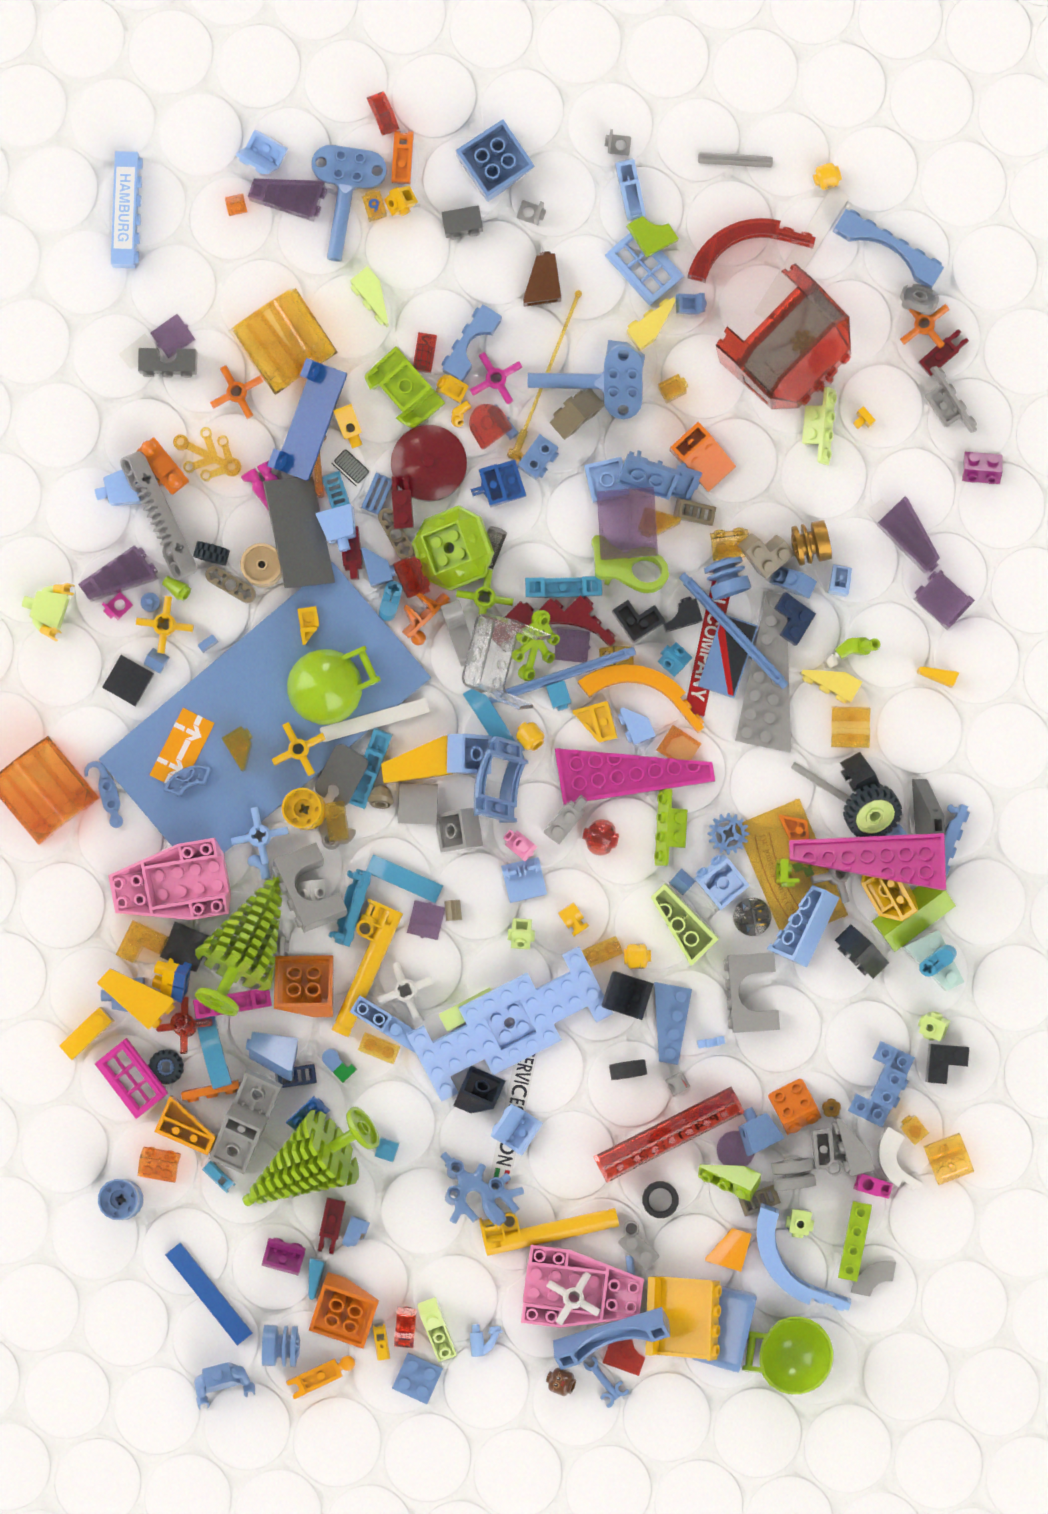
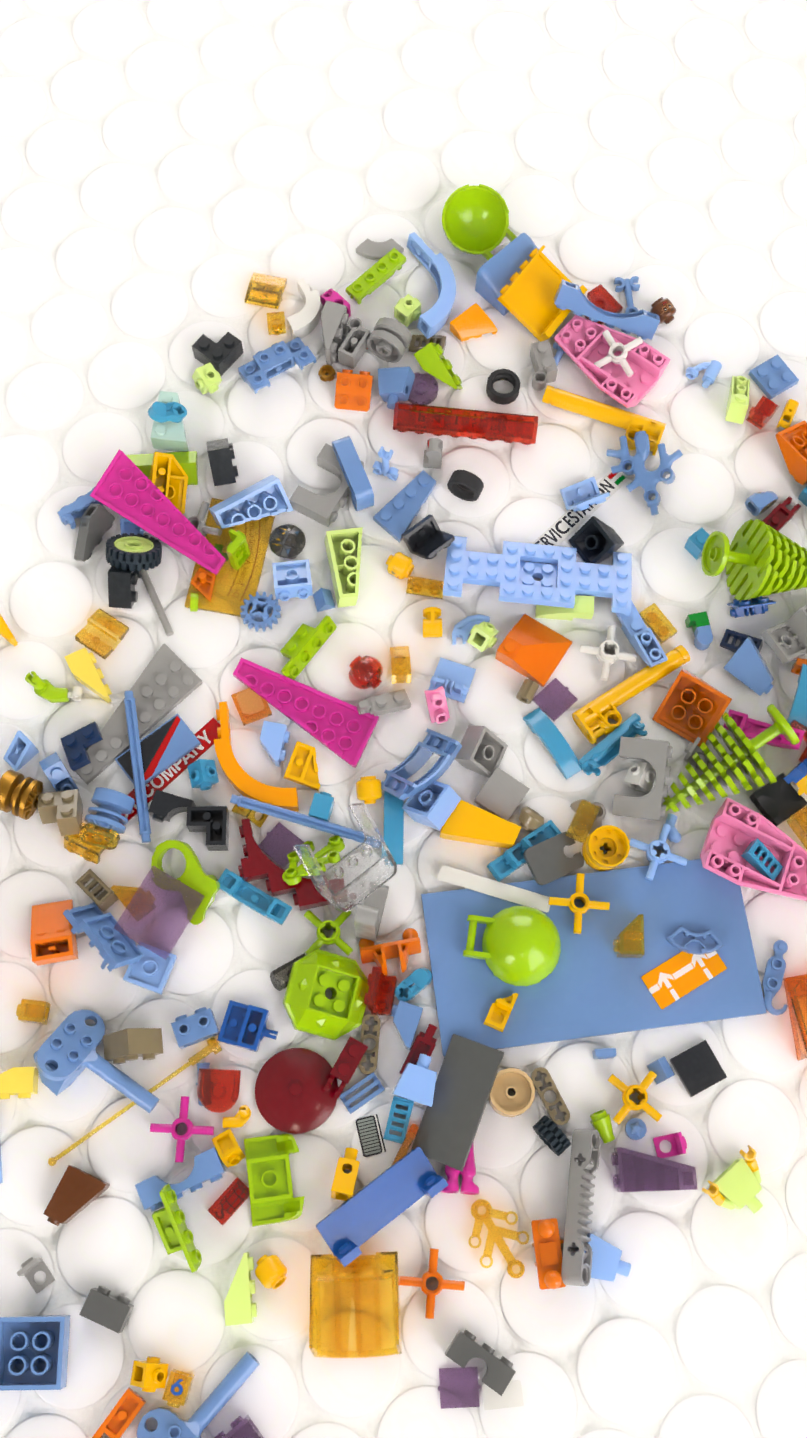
camera: 155 degrees left, 15 degrees down
(184, 885) = (754, 860): none -> dark azure slope
(360, 323) = (271, 1271): none -> yellow head
(450, 304) = (173, 1229): none -> lime bracket
(472, 954) = (533, 649): none -> orange slope
(543, 939) = (463, 628): none -> light blue piece
(577, 865) = (400, 664): none -> clear yellow slope
(719, 551) = (100, 836): none -> clear yellow plate
(735, 1014) = (354, 473): none -> medium blue beam
(790, 803) = (194, 602): none -> lime tile

